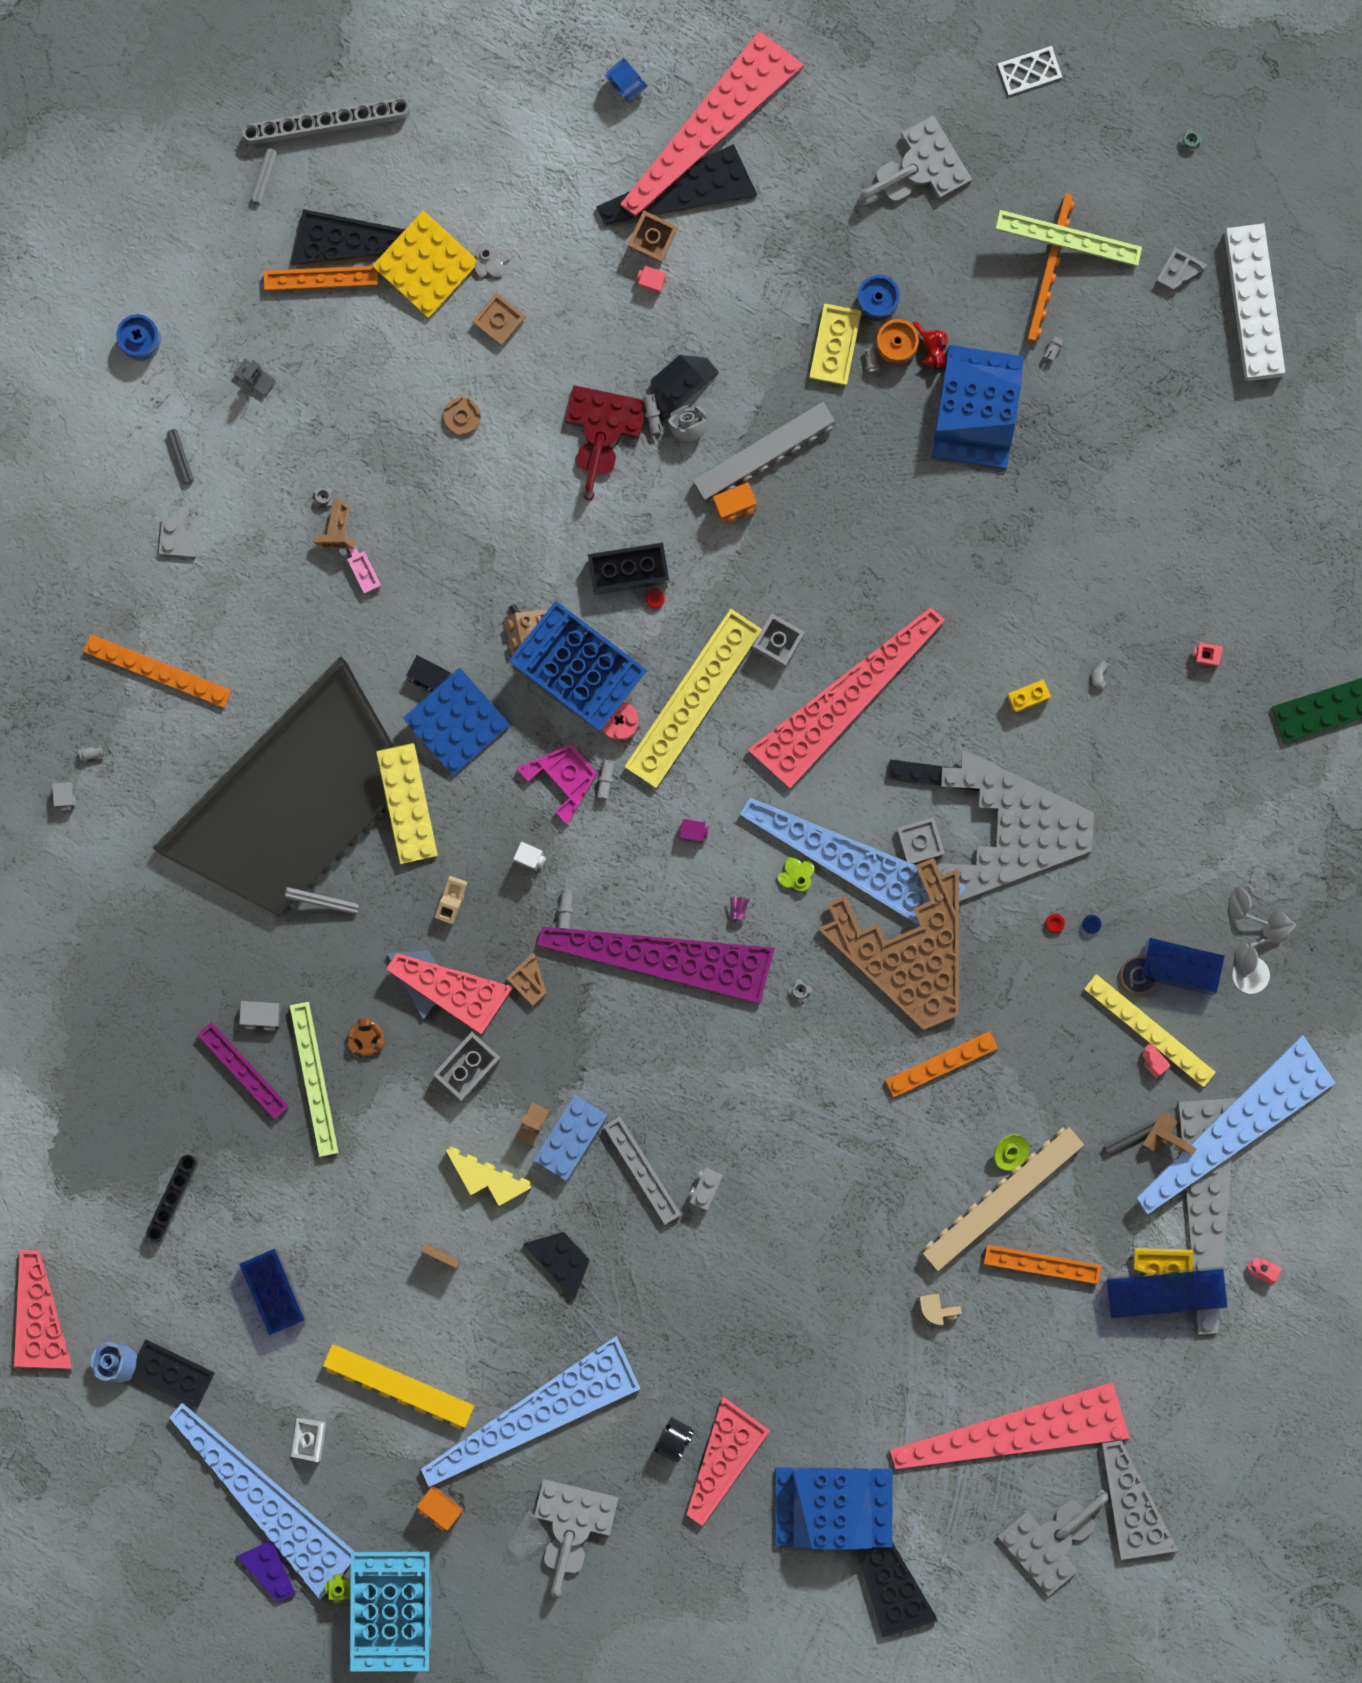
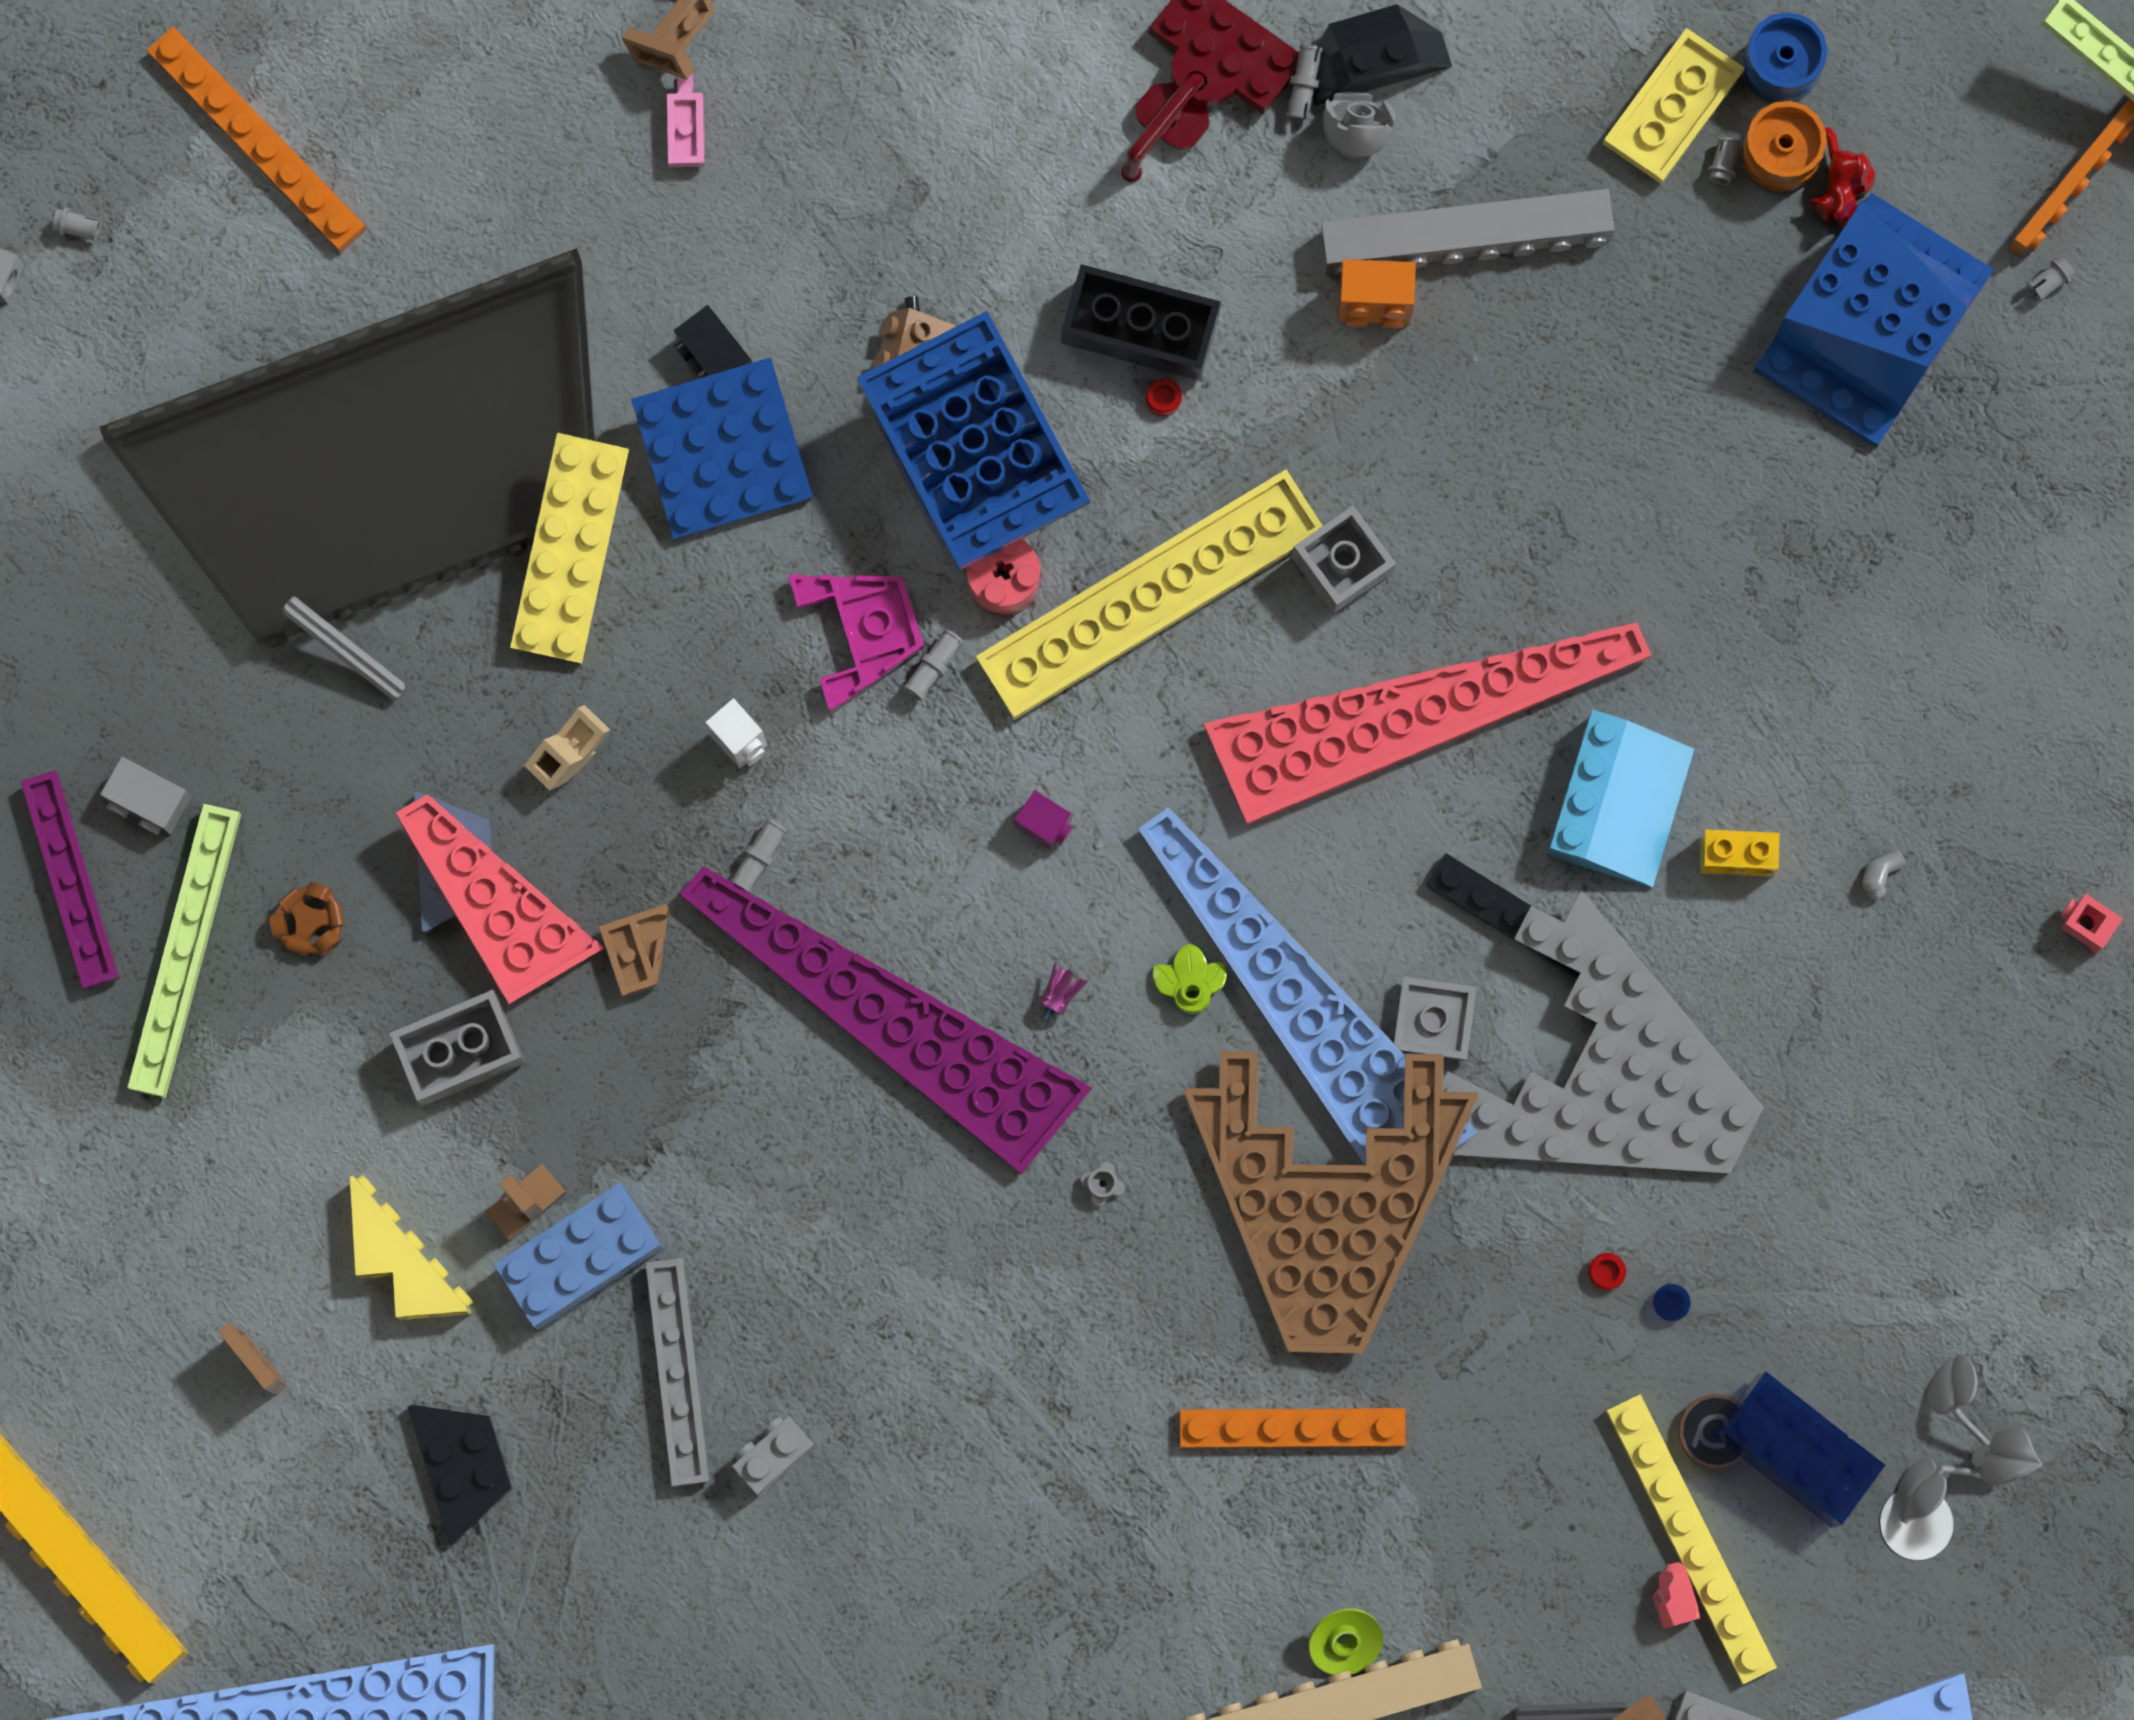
camera: 20 degrees right, 5 degrees down
(961, 696) = (1620, 799): none -> medium azure slope

